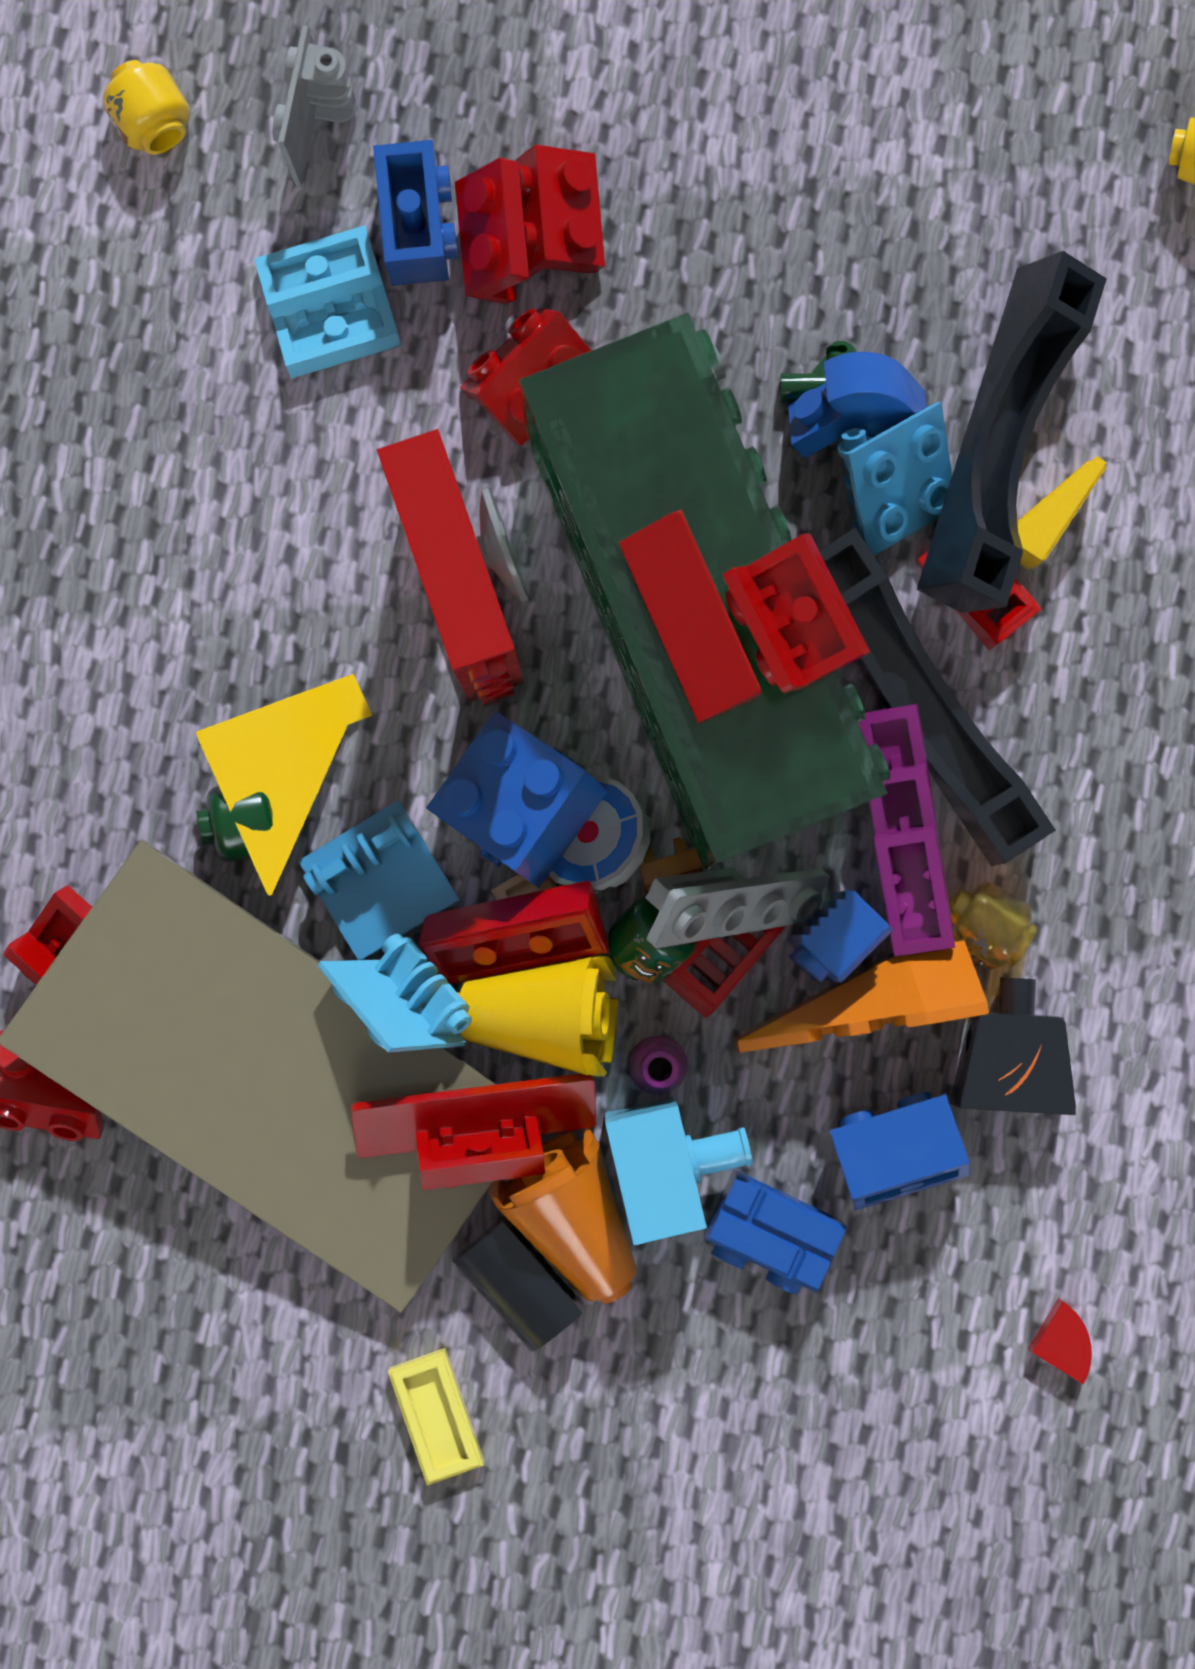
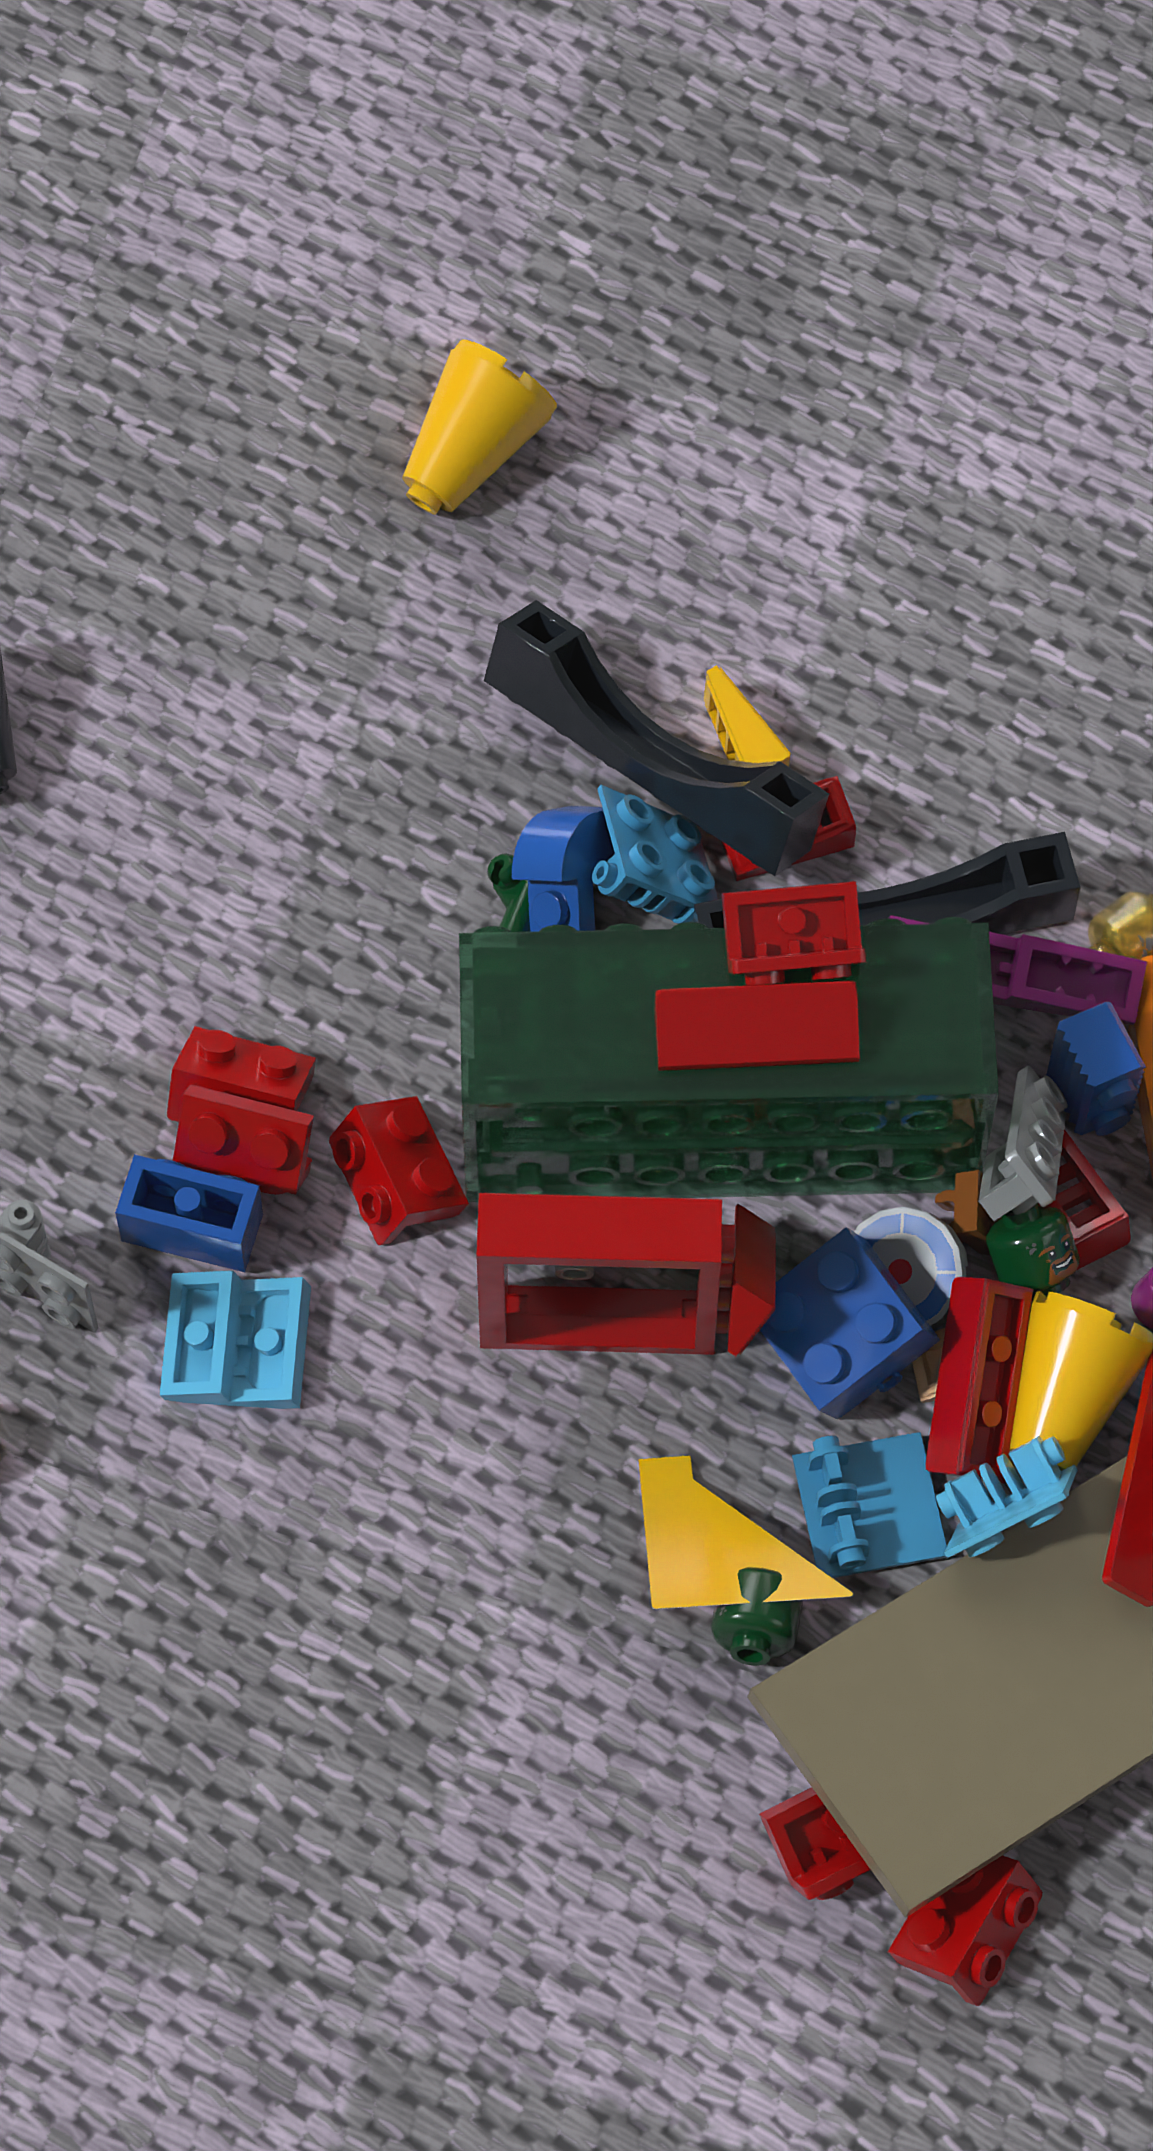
camera: 70 degrees left, 20 degrees down
(514, 704) = (752, 1279): none -> red slope

